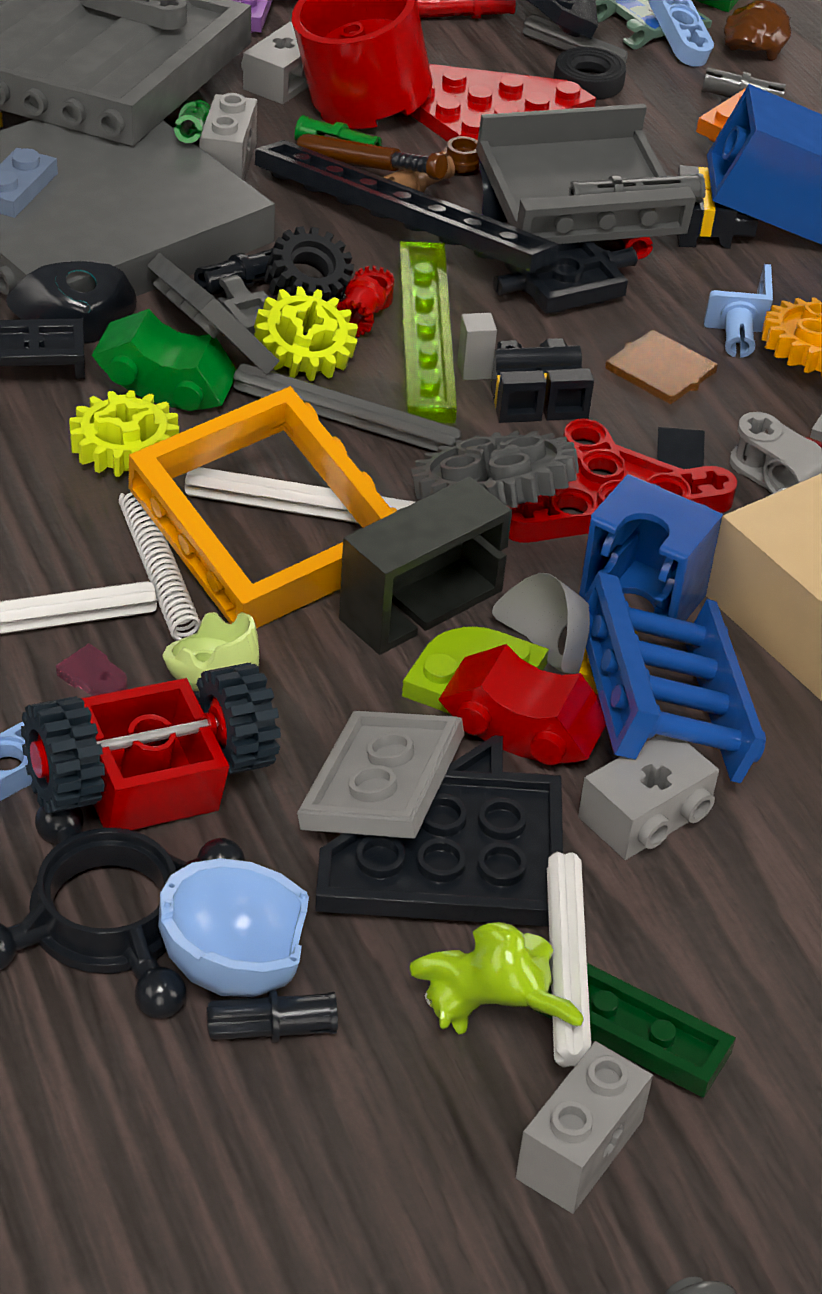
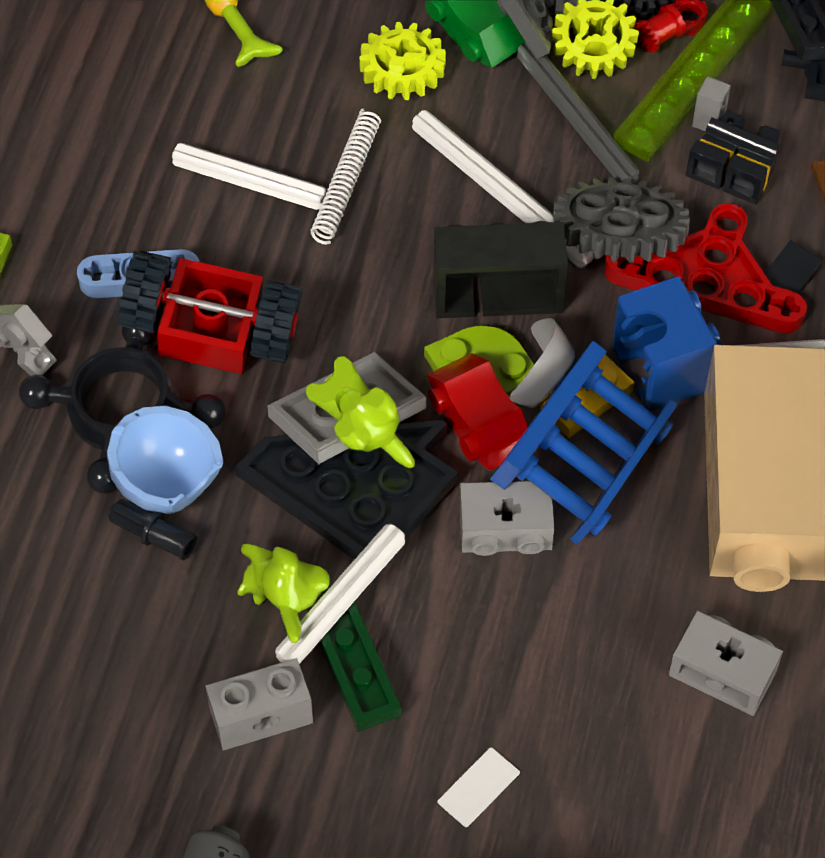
camera: 40 degrees right, 15 degrees up
(91, 672) = (243, 231): clear pink piece -> none
(199, 548) = (425, 101): light orange window -> none
(213, 647) = (314, 266): yellowish green hair -> none
(437, 751) = (364, 416): none -> lime animal

